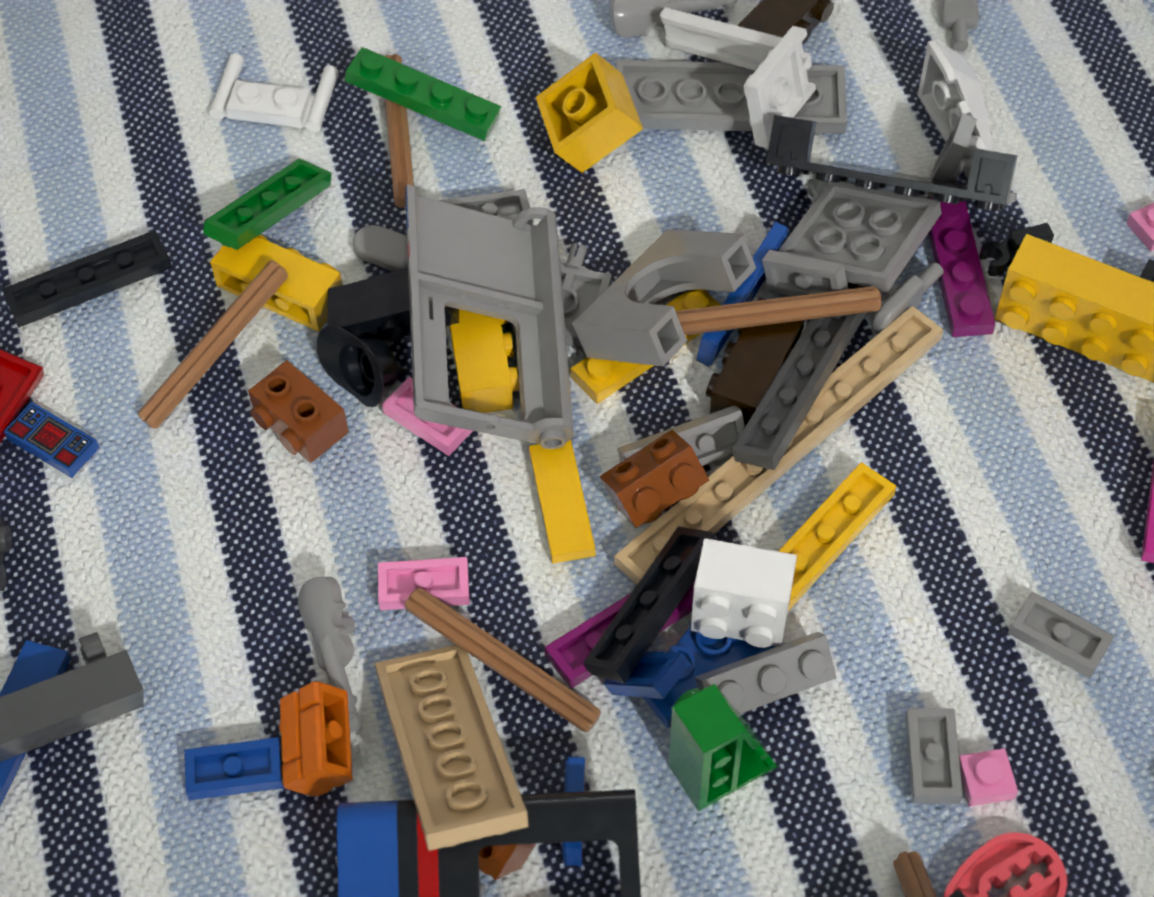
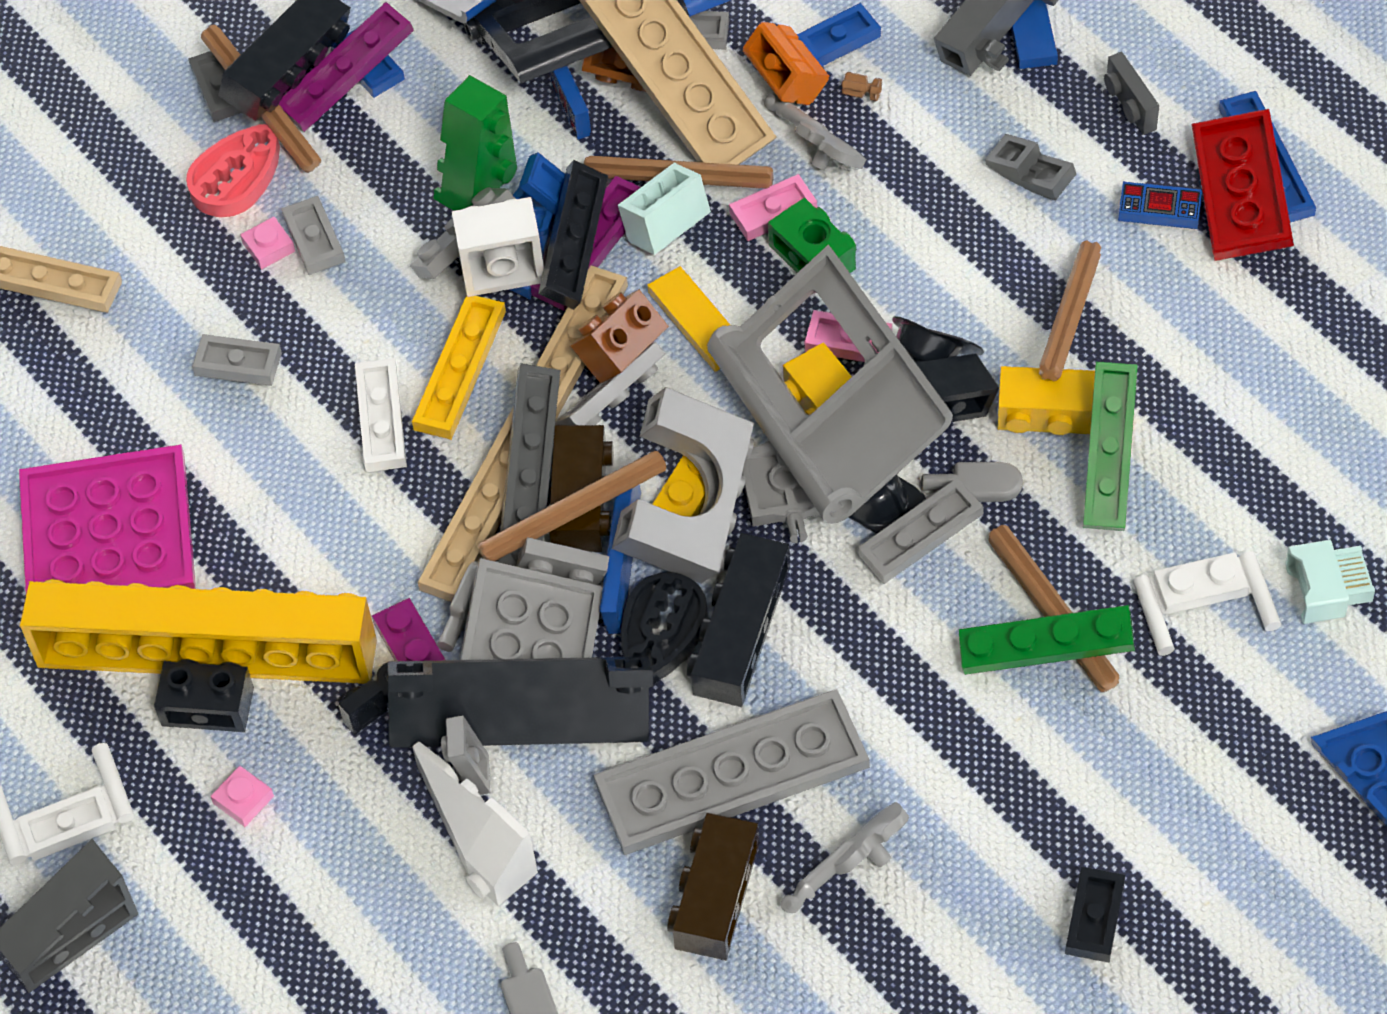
camera: 160 degrees right, 0 degrees up
(86, 278) = (1236, 341): black plate -> none
(141, 529) = (1024, 165): none -> dark grey slope
(170, 65) = (1329, 579): none -> light aqua piece
(249, 699) = (858, 85): none -> medium nougat piece
(297, 412) = (958, 286): dark orange brick -> none
(404, 497) = (804, 232): none -> green brick
(540, 608) = (664, 208): none -> light aqua brick
(588, 113) = (856, 658): yellow brick -> none
(664, 199) = (739, 619): none -> black brick
(739, 210) = (644, 615): none -> black piece
(779, 63) = (720, 790): white bracket -> none
(924, 515) = (380, 415): none -> white plate

